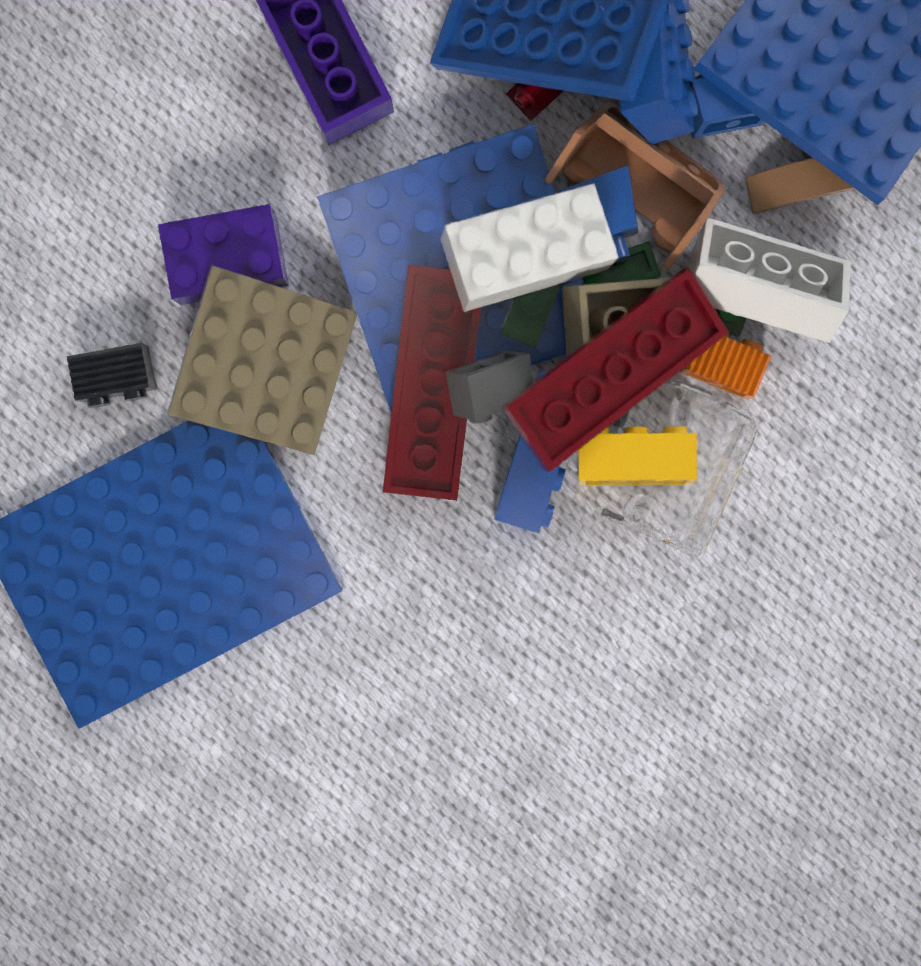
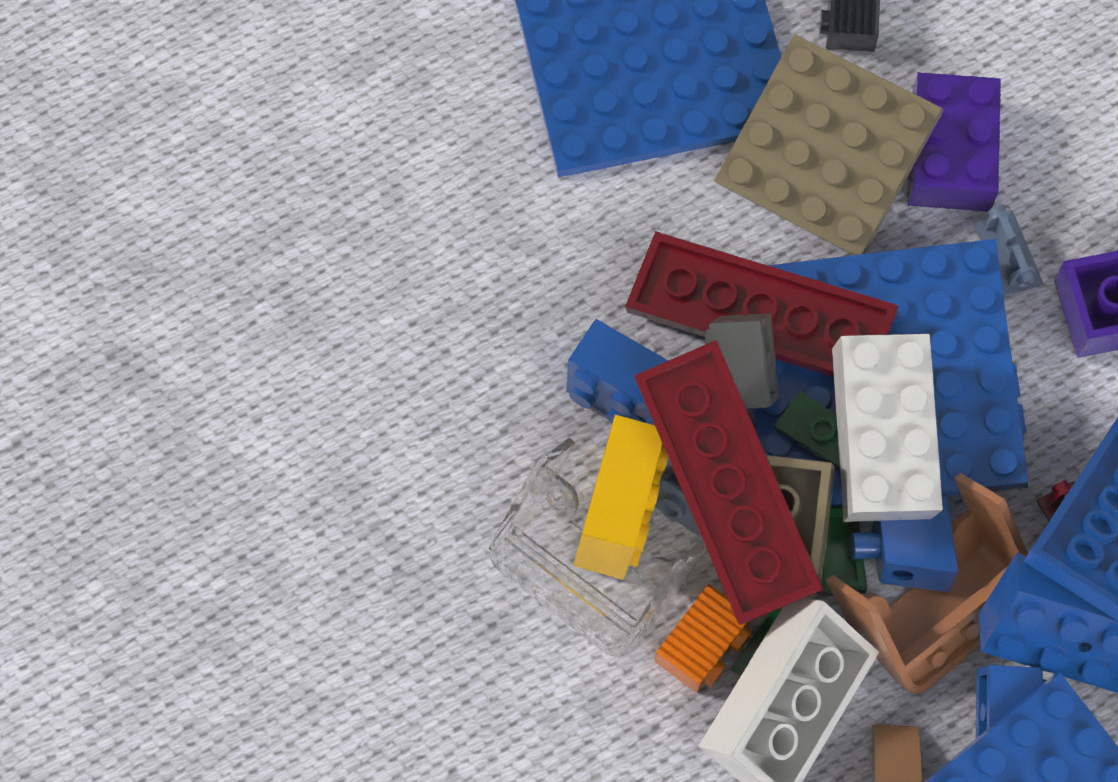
camera: 105 degrees right, 20 degrees down
(300, 195) = (1015, 260): none -> sand blue hinge

